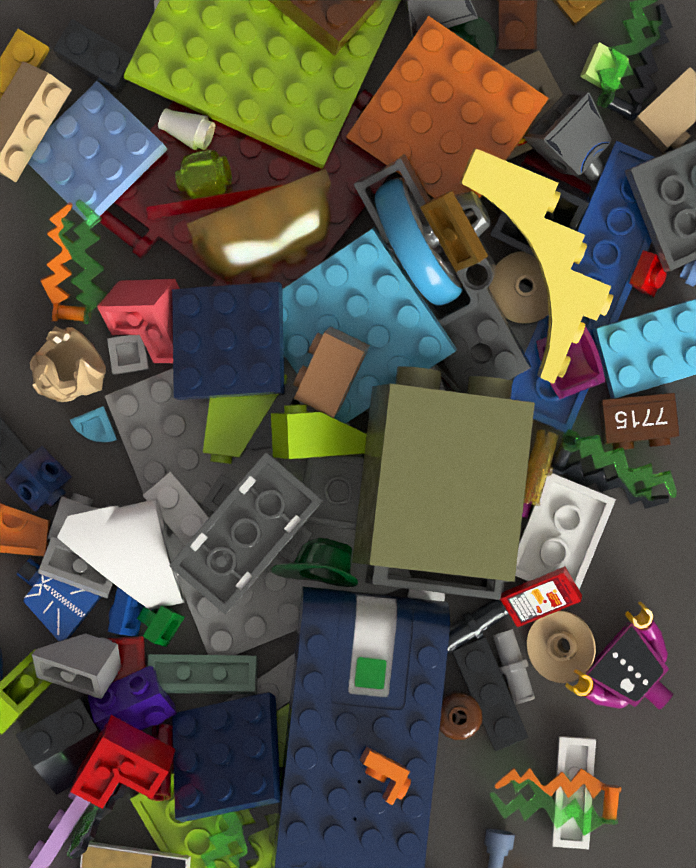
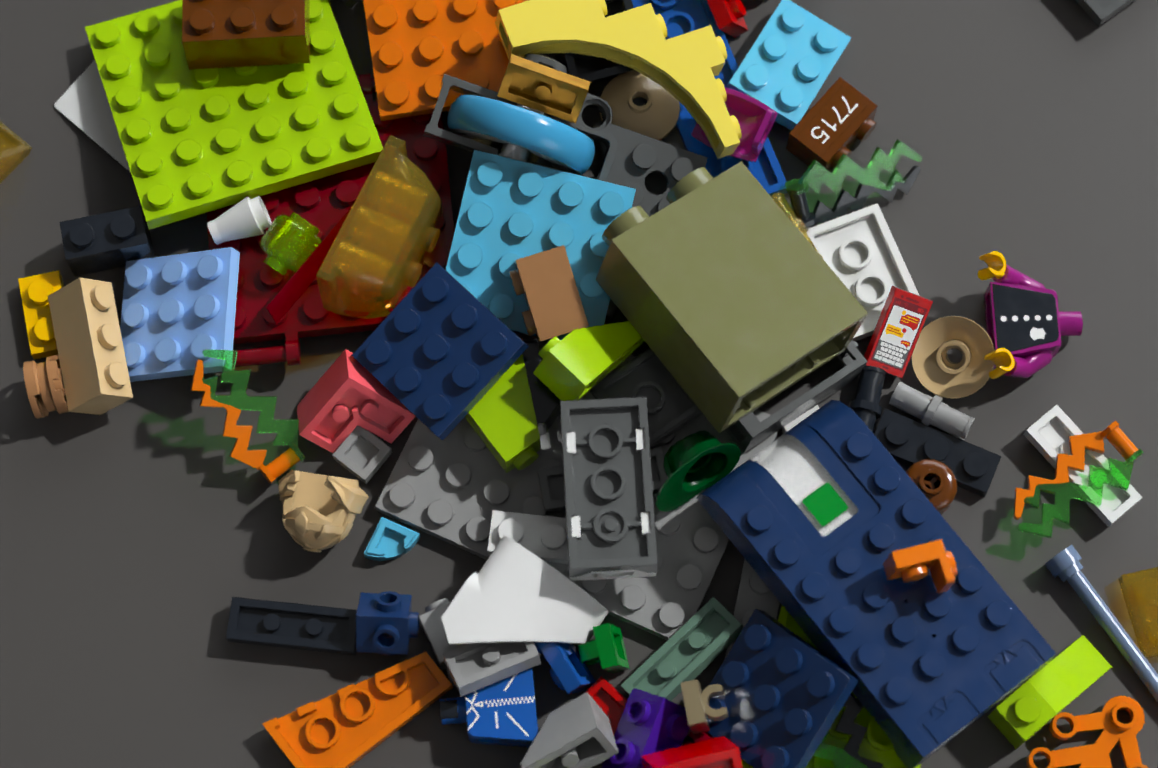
camera: 45 degrees left, 15 degrees down
(175, 716) = (698, 707): none -> dark tan tile

